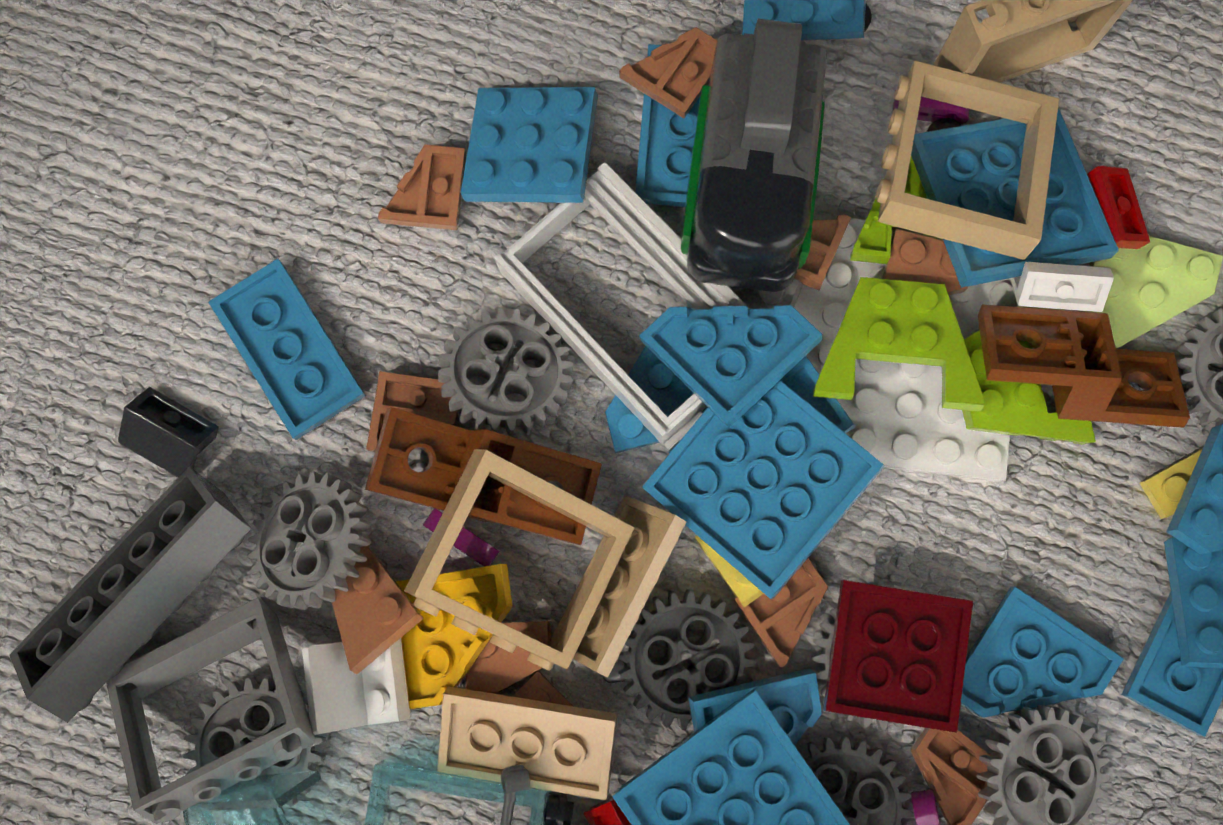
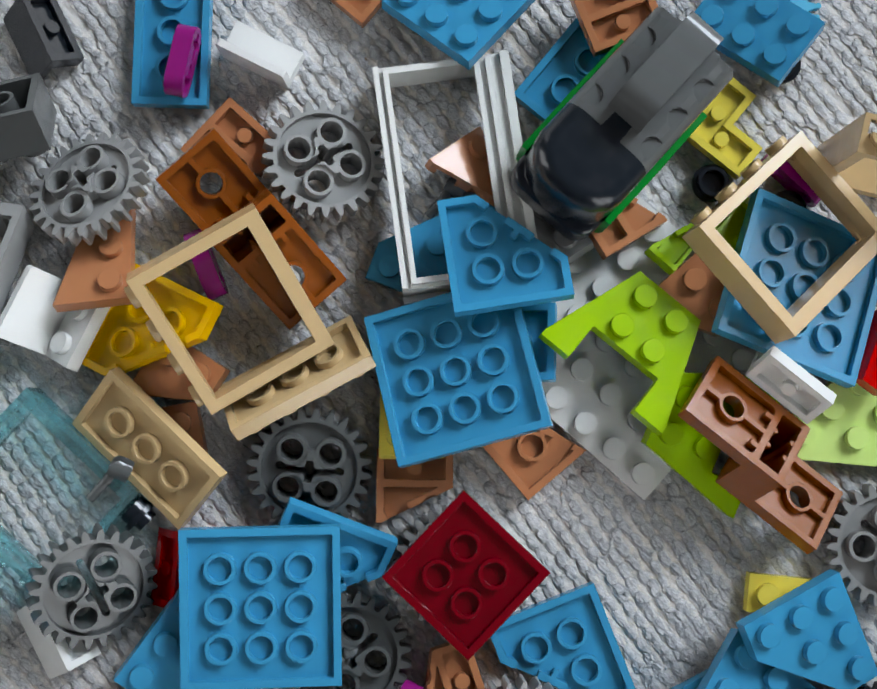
camera: 30 degrees right, 5 degrees up
(316, 367) = (182, 60): none -> magenta beam
(381, 314) = (261, 54): none -> white panel
(638, 286) = (467, 164): none -> nougat wing
(638, 315) = (449, 189): none -> dark grey hand
(847, 115) = (719, 137): none -> light yellow plate
(862, 160) = (709, 182): none -> black plate
(882, 511) = (534, 459): none -> nougat wing

